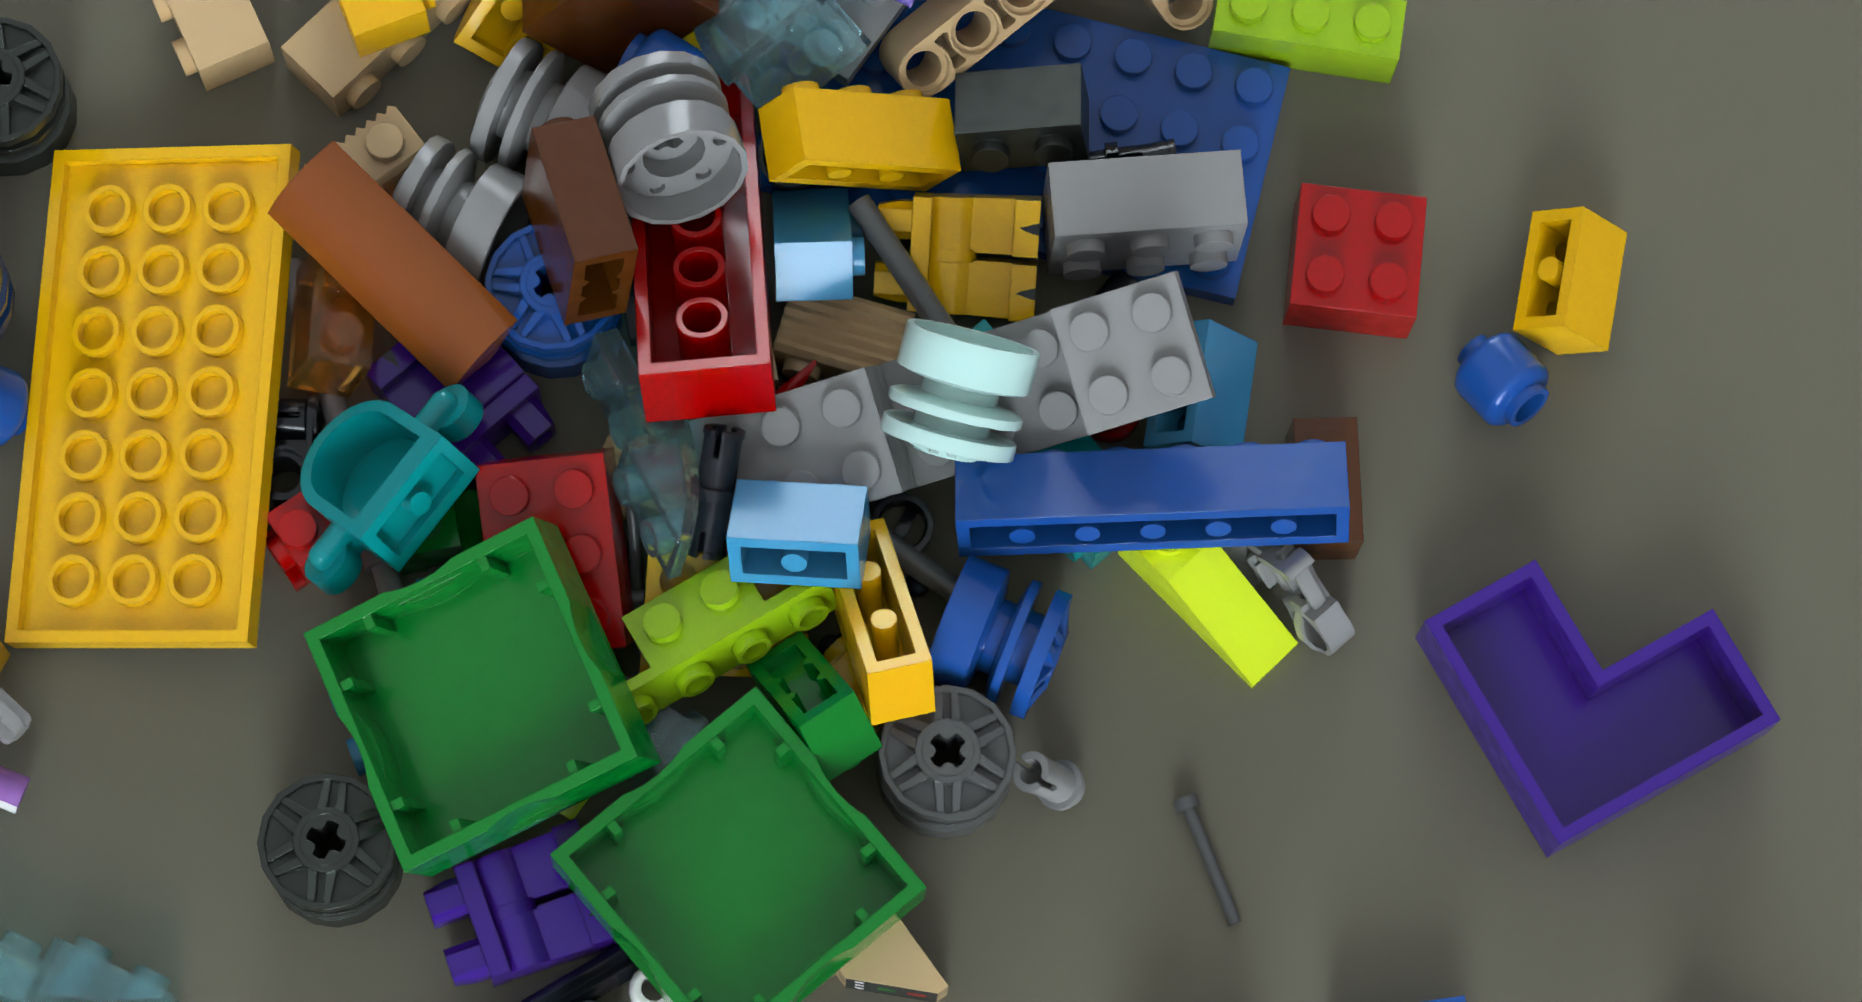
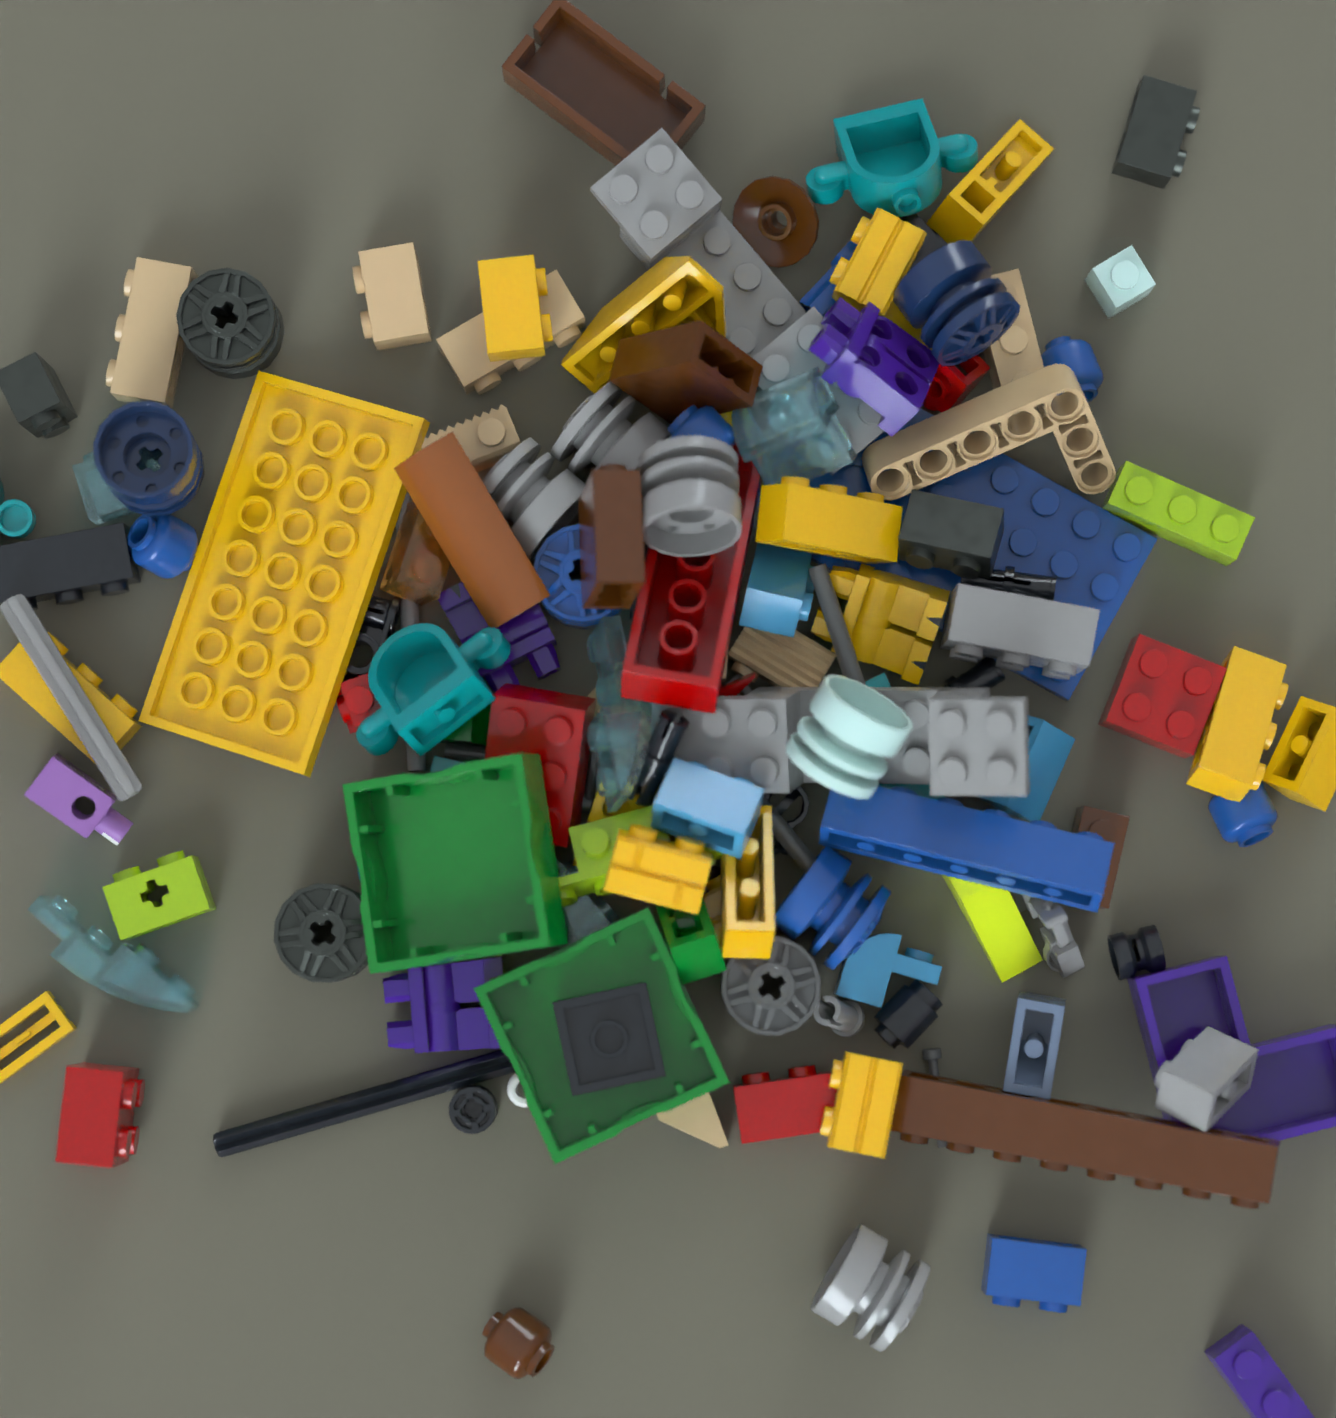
camera: 20 degrees right, 10 degrees up
(124, 860) = (186, 898): none -> lime brick
(750, 880) = (609, 1039): none -> black plate
(756, 627) = (658, 869): none -> yellow brick
(1037, 906) = (782, 1105): none -> red brick
(1077, 695) = (868, 971): none -> dark azure brick
(1112, 876) = (862, 1104): none -> yellow brick
(1139, 758) = (907, 1015): none -> black brick
(1318, 746) = (1034, 1045): none -> sand blue slope
(1415, 596) = (1136, 952): none -> black wheel
(1417, 842) = (1086, 1137): none -> reddish brown brick
(1464, 268) = (1239, 726): none -> yellow brick
(1553, 718) = (1205, 1078): none -> light grey brick

